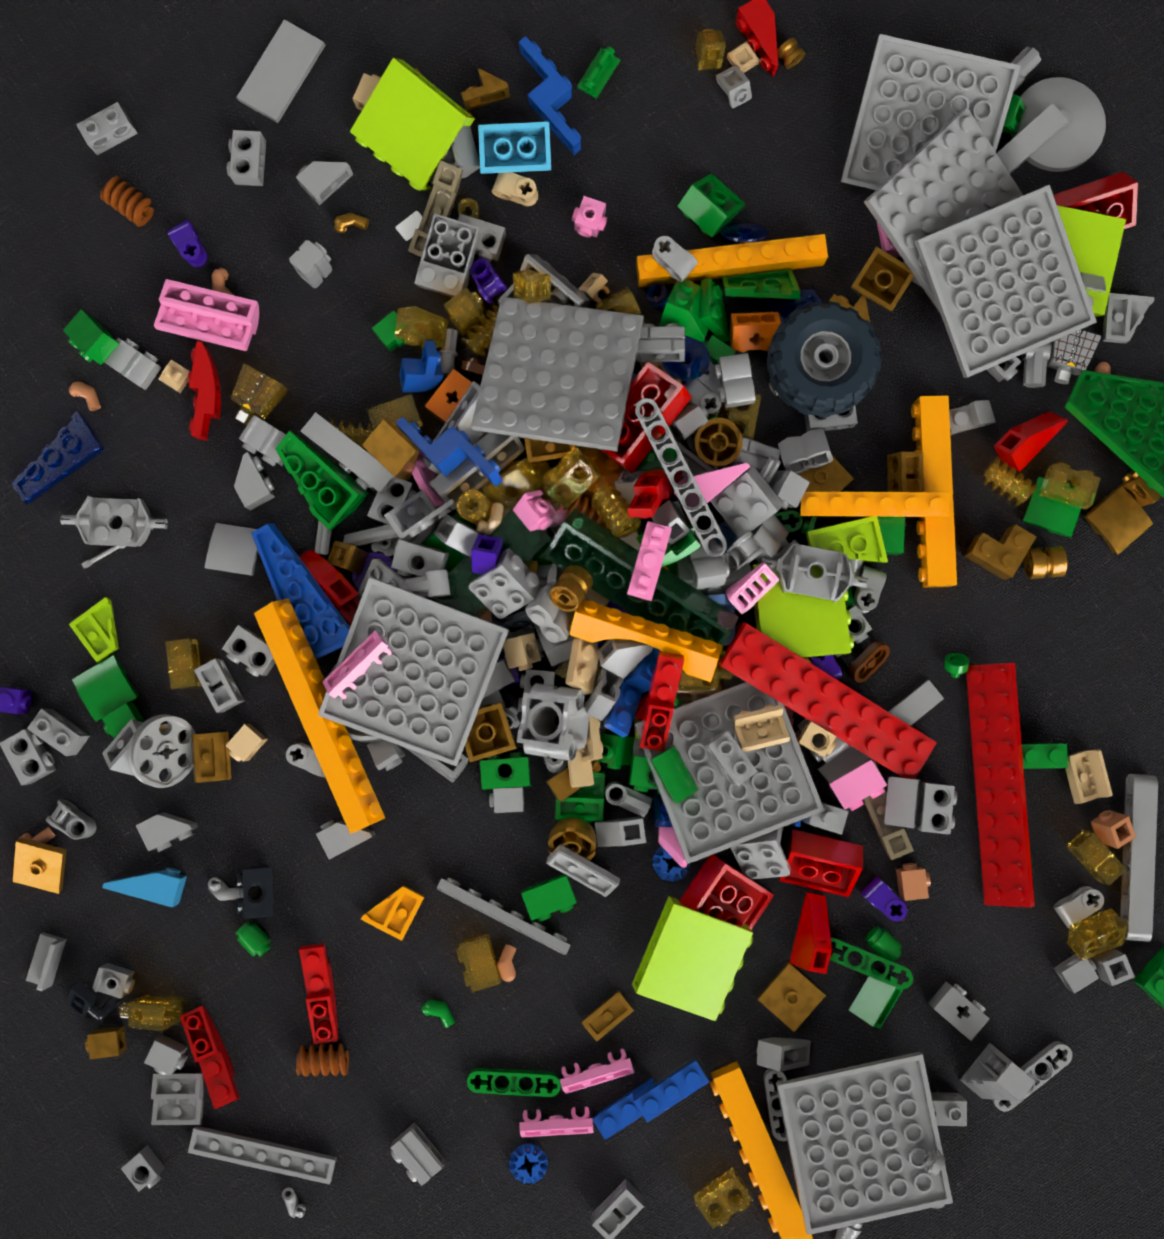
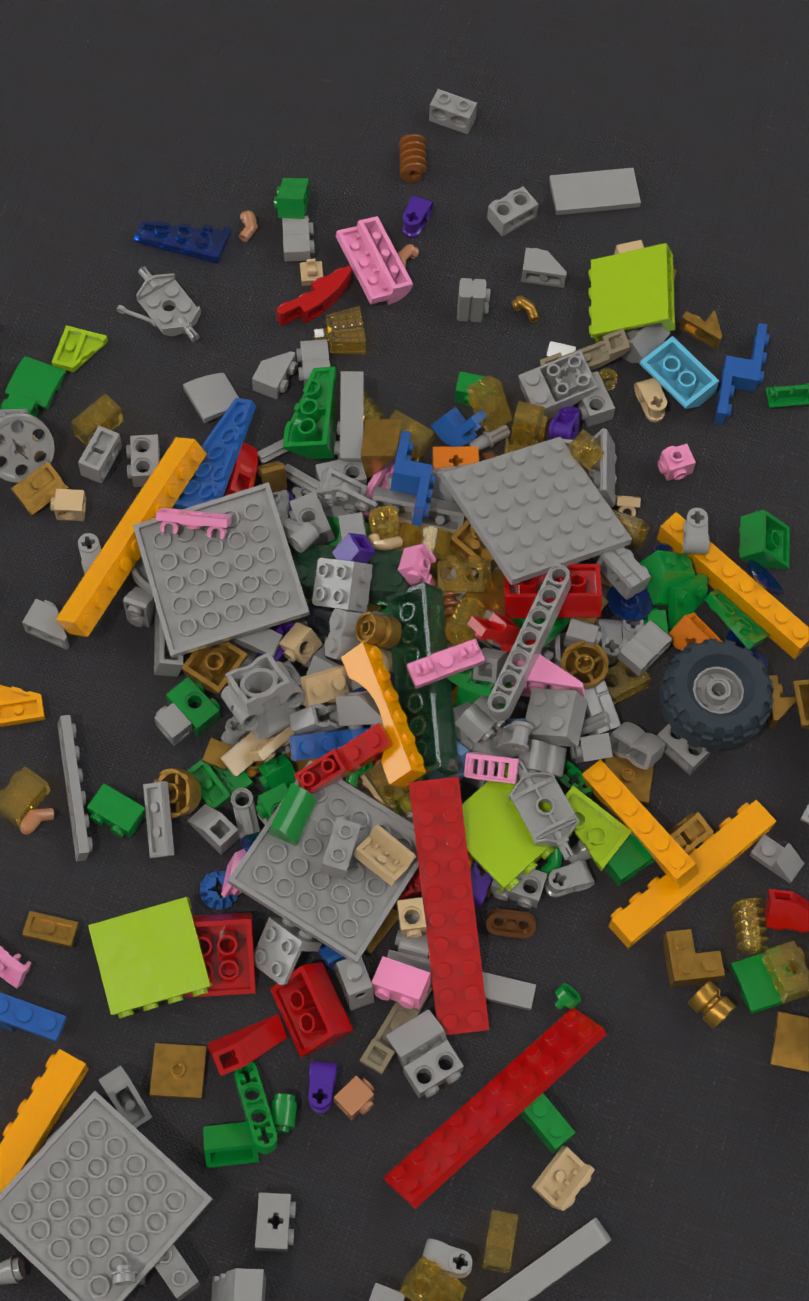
camera: 45 degrees right, 20 degrees down
(1113, 828) = (536, 1233): nougat brick -> none

